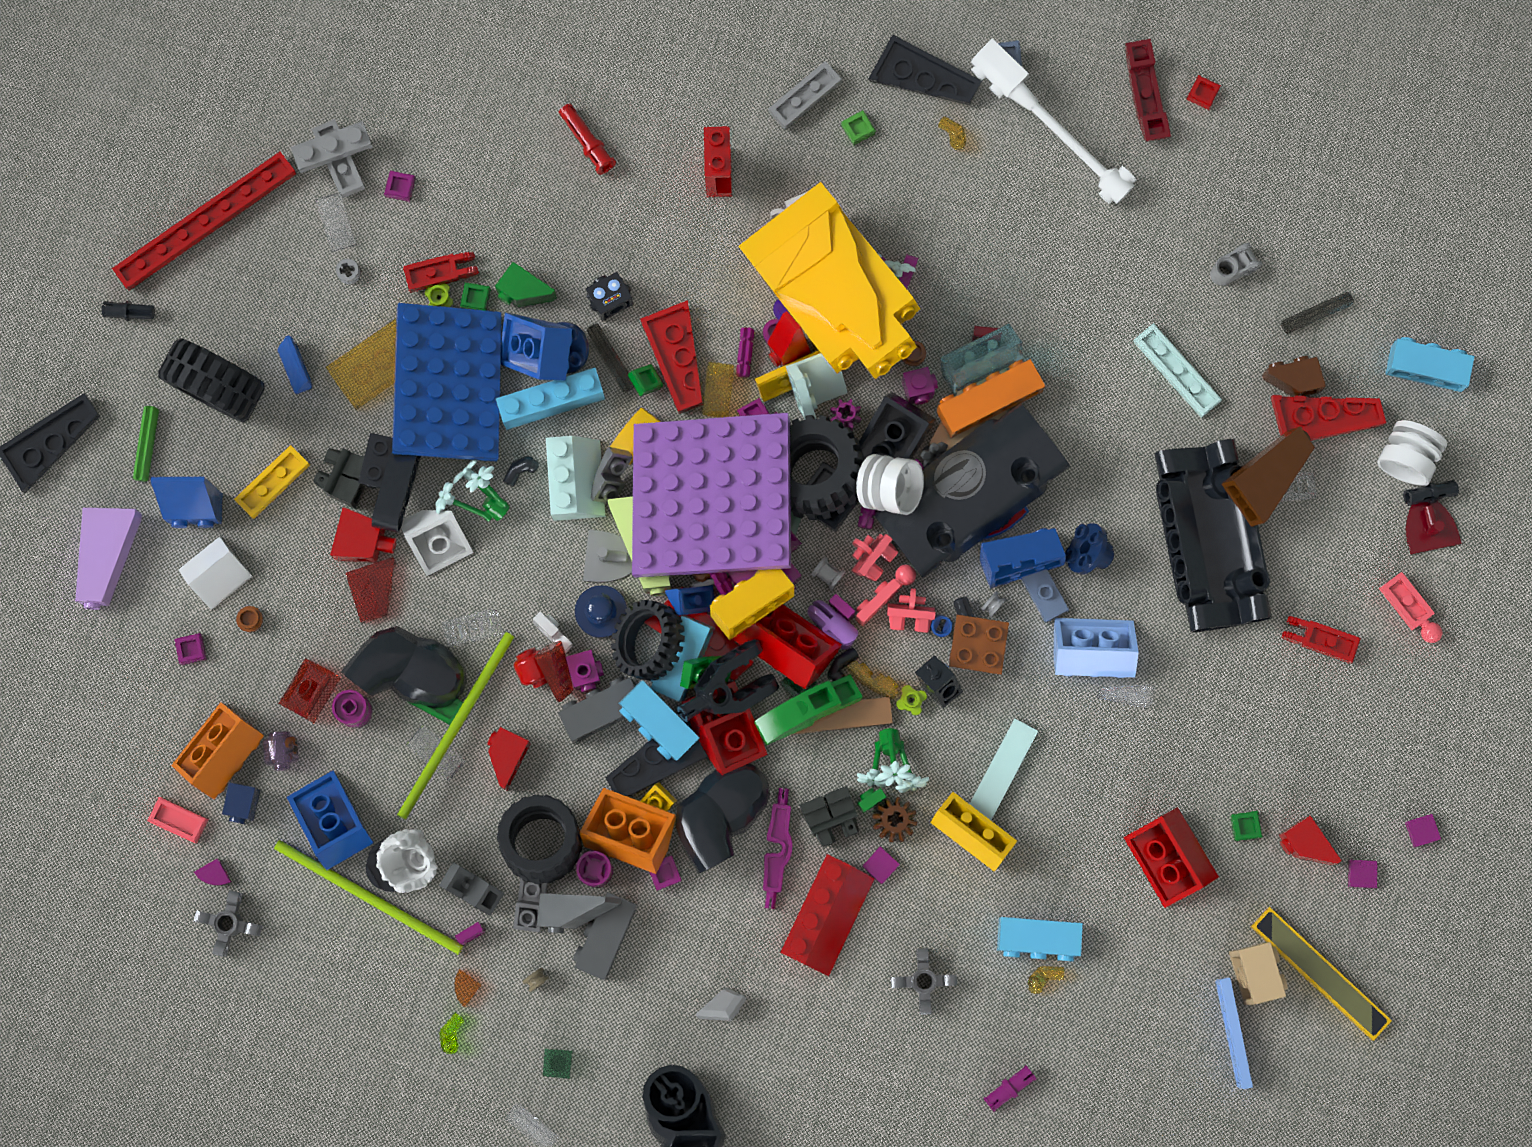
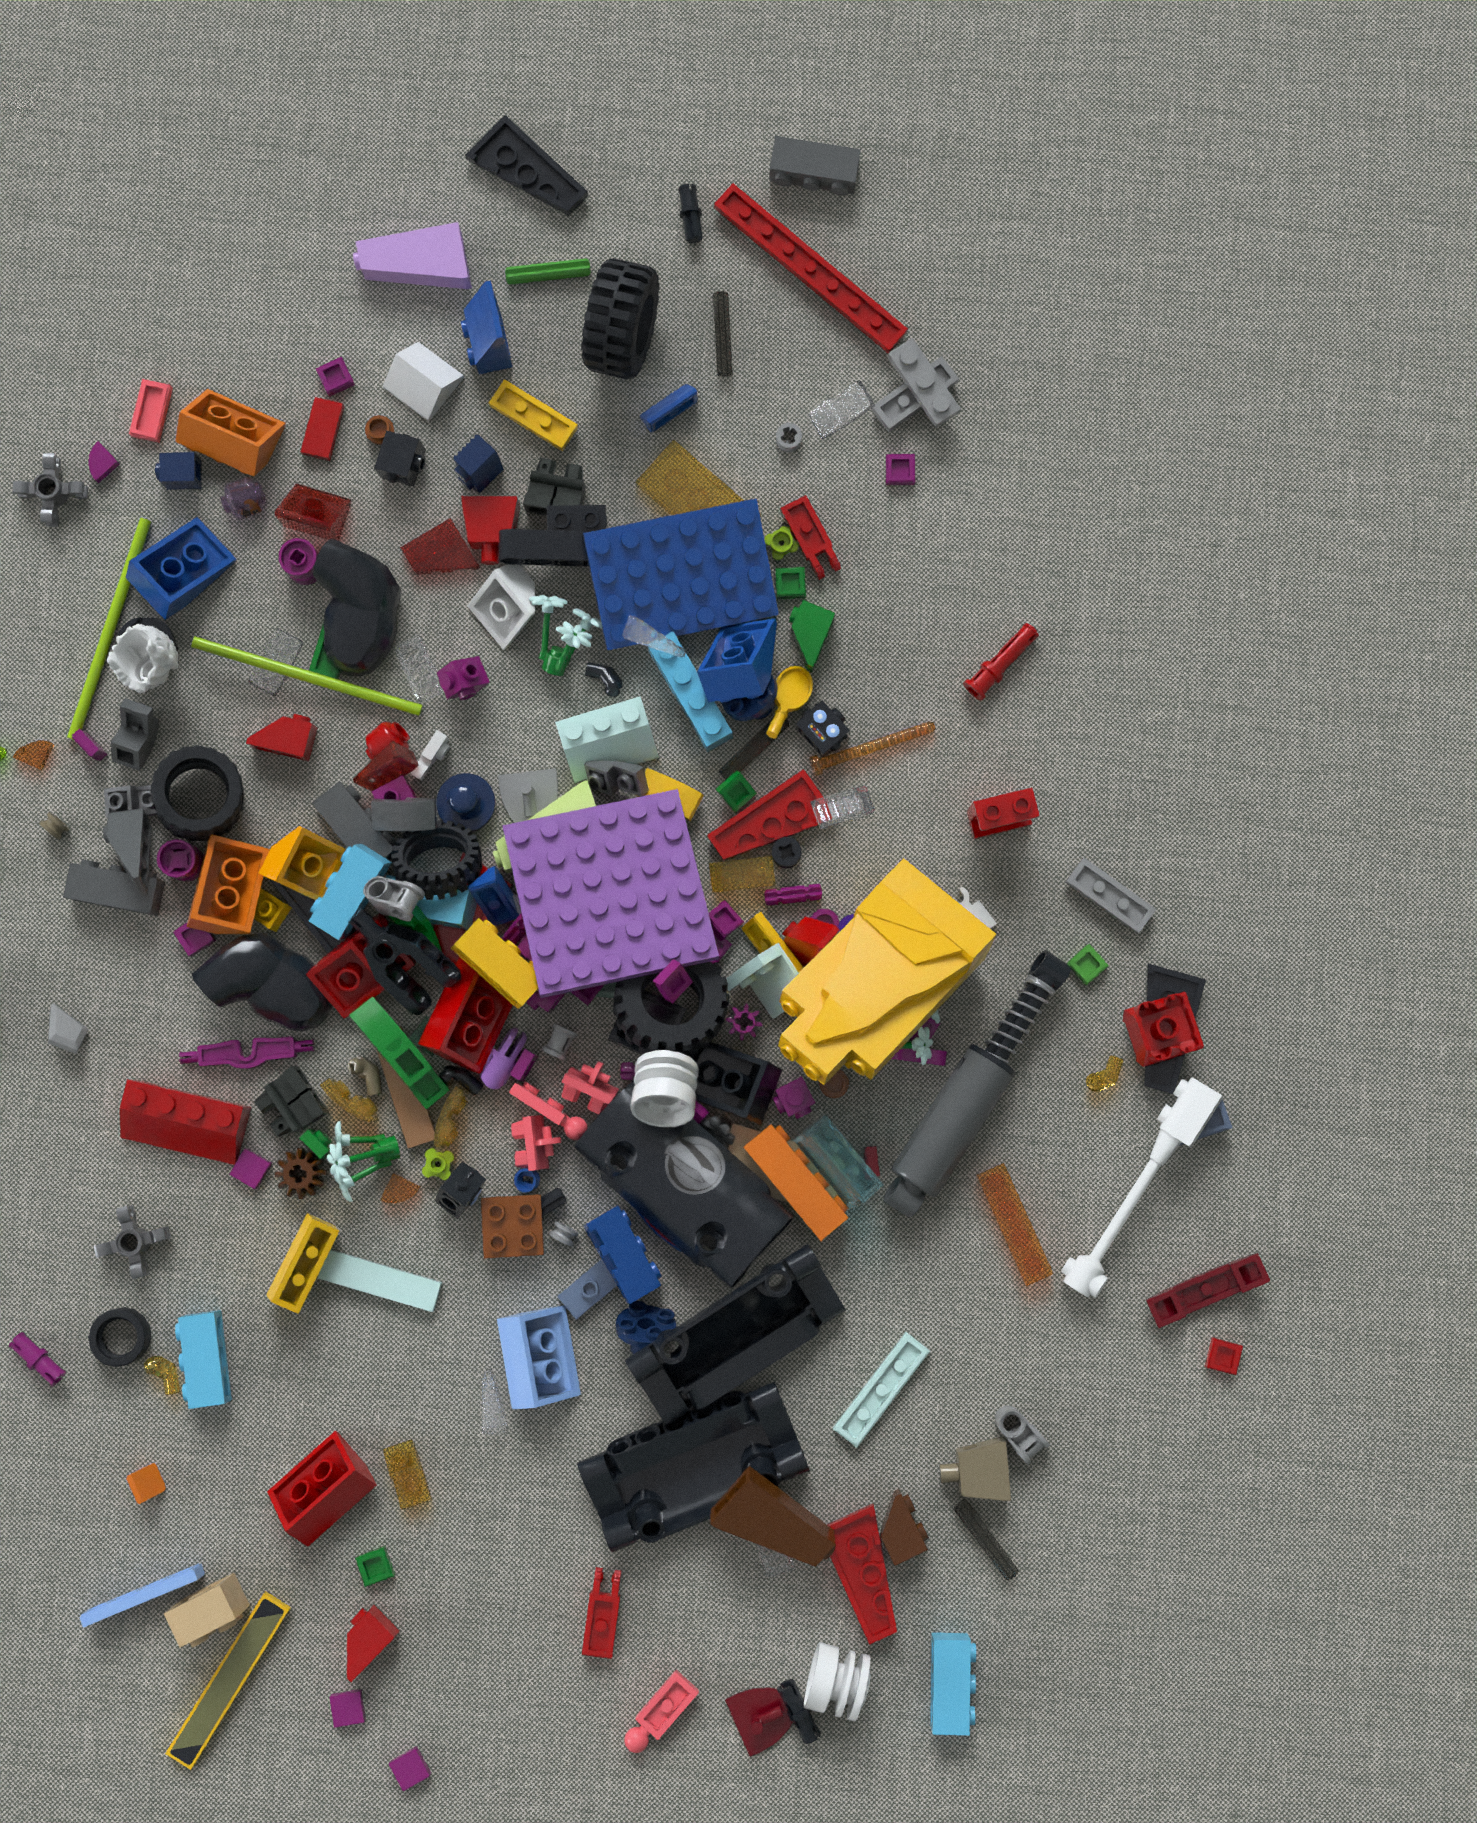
camera: 80 degrees right, 5 degrees up
(115, 197) = (814, 165): none -> dark grey brick
(235, 669) = (322, 429): none -> red tile
(242, 307) = (722, 334): none -> clear smoke axle
(281, 603) = (400, 458): none -> black head
(305, 535) = (477, 464): none -> dark blue brick
(492, 588) = (463, 678): none -> magenta brick
(496, 416) = (642, 633): none -> clear slope
(573, 311) = (793, 692): none -> yellow piece
(602, 660) = (404, 815): none -> flat silver slope
(623, 758) = (303, 862): none -> light orange slope
(638, 307) = (819, 764): none -> clear orange bar
(677, 674) = (393, 897): none -> light grey piece
(681, 290) = (858, 801): none -> clear slope
(708, 353) = (784, 857): none -> black wheel
(800, 454) = (672, 981): none -> magenta tile
(818, 745) = (368, 1071): none -> dark tan arm
(847, 757) = (357, 1106): none -> clear yellow slope
(926, 77) = (1162, 1029): none -> red slope
(926, 739) = (399, 1189): none -> clear orange tile
(948, 242) = (969, 1095): none -> dark grey piece
(1024, 1002) = (96, 1337): none -> black tyre
(1062, 232) = (1014, 1224): none -> clear orange plate
(1111, 473) = (736, 1336): none -> black panel
(1137, 1011) = (146, 1483): none -> orange slope
(1173, 781) = (407, 1474): none -> clear yellow slope
(1259, 302) = (980, 1470): none -> dark tan torso

